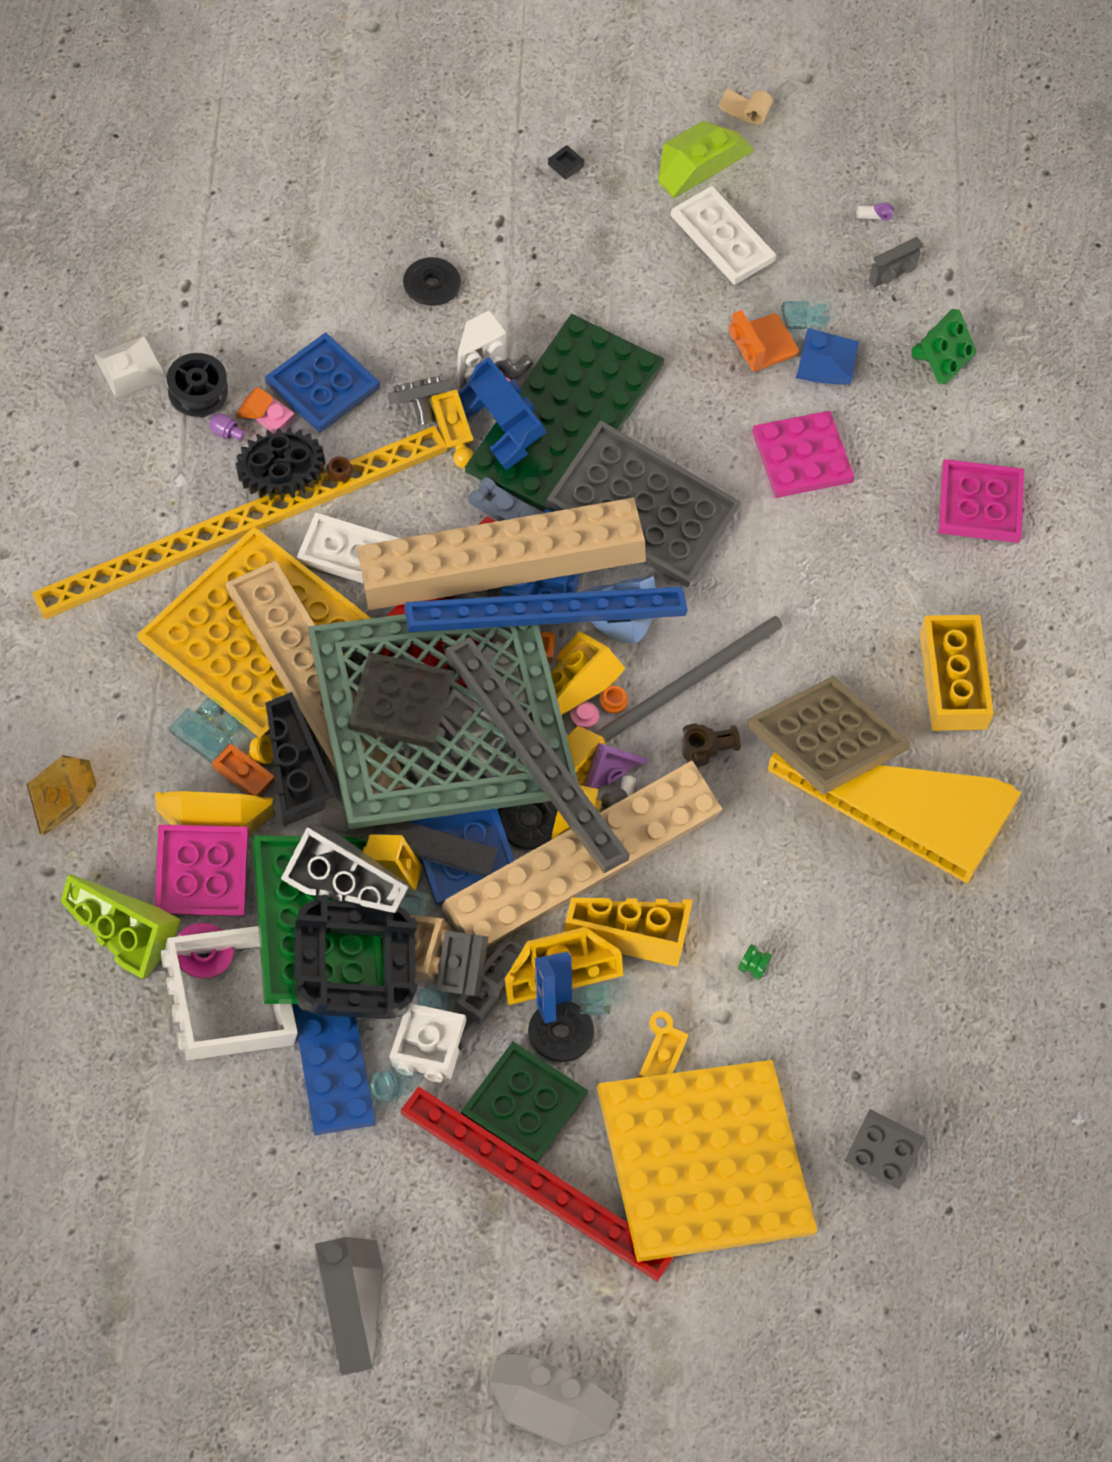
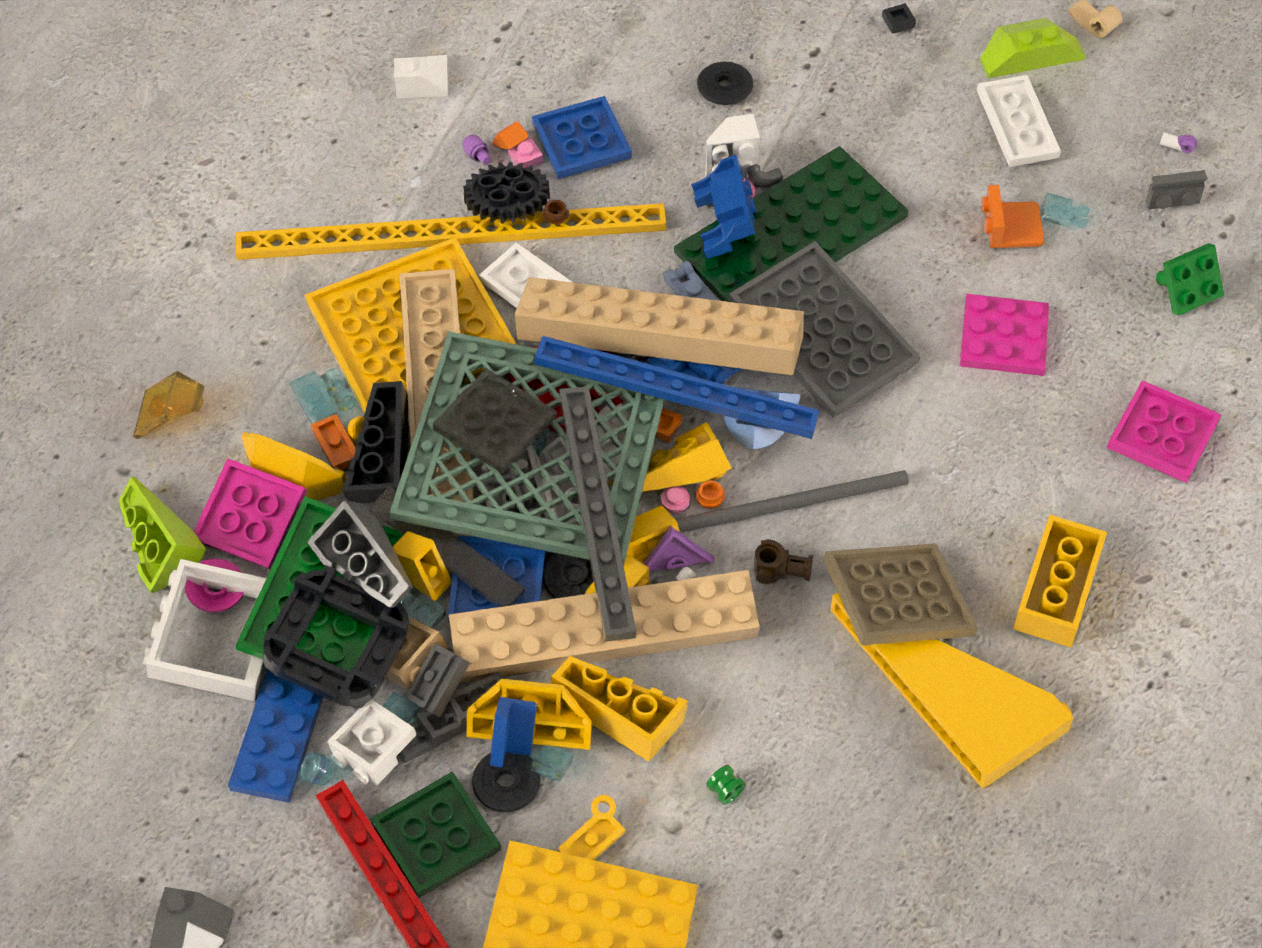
camera: 30 degrees right, 5 degrees down
(197, 384) = (468, 105): black wheel -> none
(419, 396) = (660, 171): dark grey plate -> none
(453, 425) = (680, 206): yellow plate -> none
(827, 358) = (1069, 256): blue plate -> none

